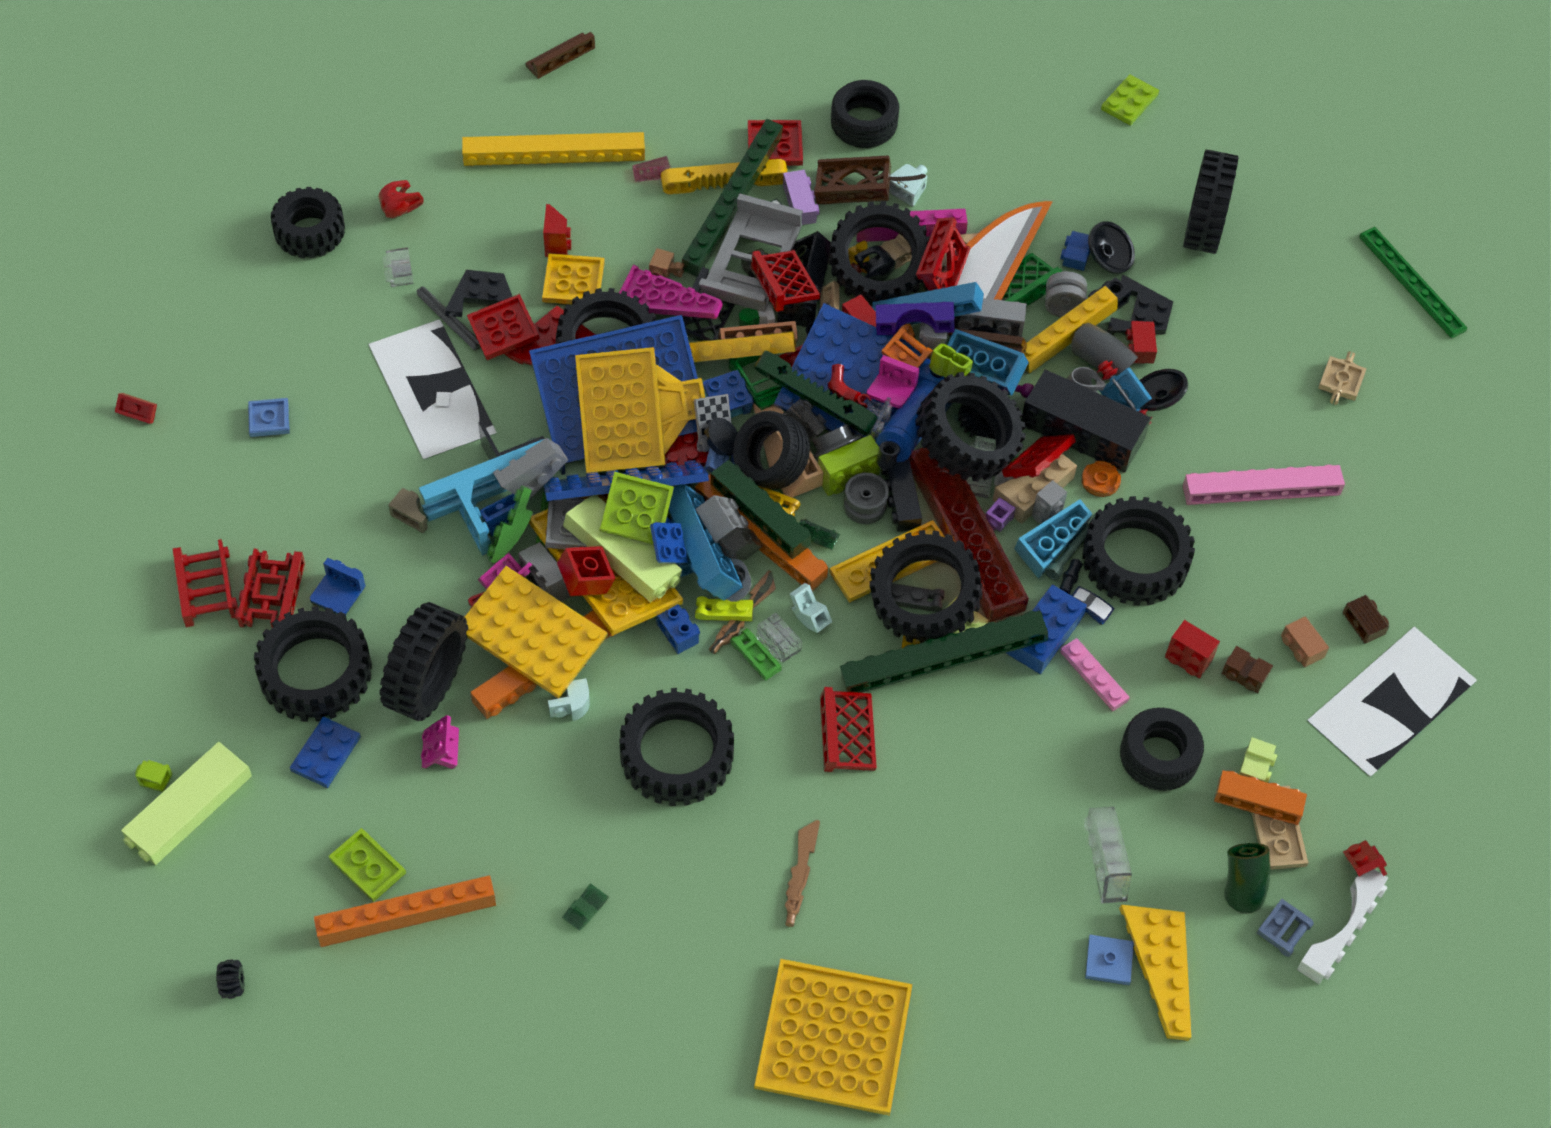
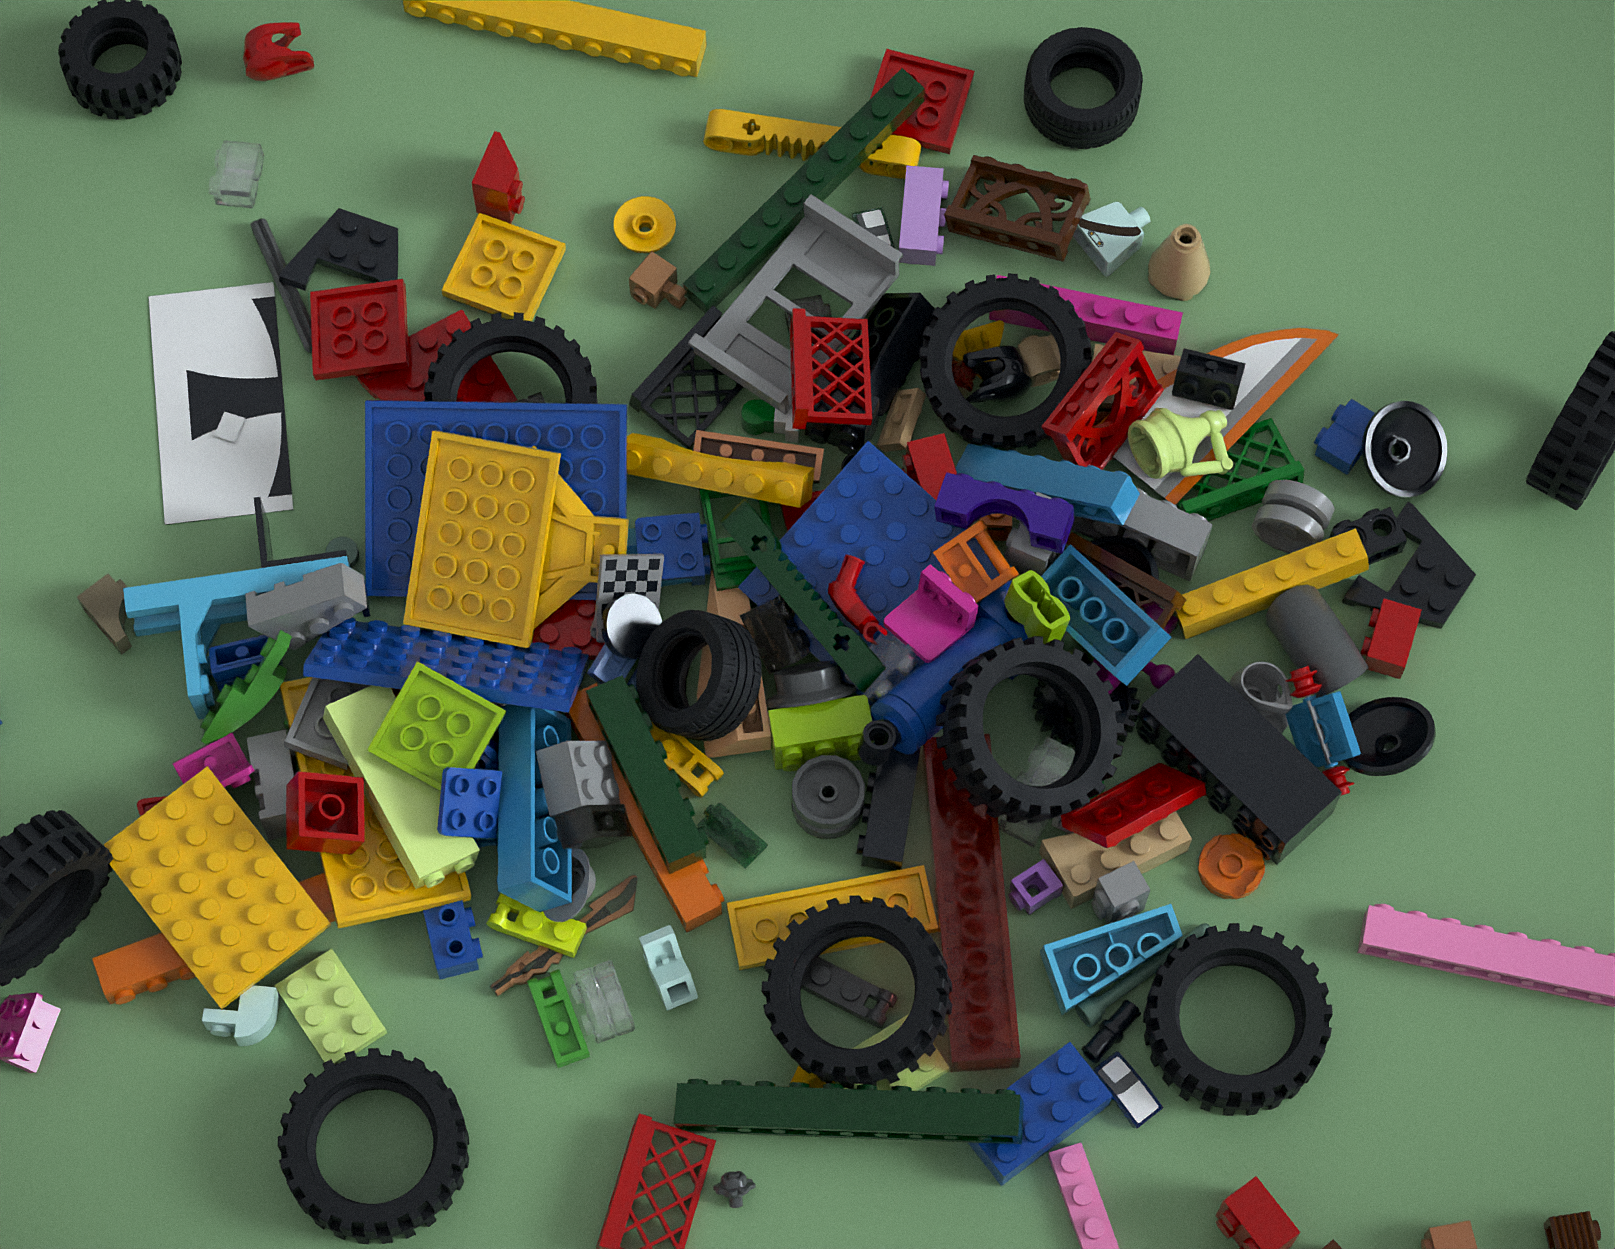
camera: 20 degrees right, 10 degrees up
(619, 684) = (330, 1008): none -> yellowish green plate
(646, 238) = (641, 213): none -> yellow dish
(660, 164) = (700, 109): clear pink slope -> none
(669, 296) = (628, 342): dark pink wing -> none
(891, 713) = (734, 1186): none -> dark grey plant
(953, 185) = (1180, 264): none -> tan cone
(987, 271) = (1169, 441): none -> yellowish green piece
(992, 238) = (1208, 379): none -> black bracket
(1130, 99) = (1549, 171): lime plate -> none

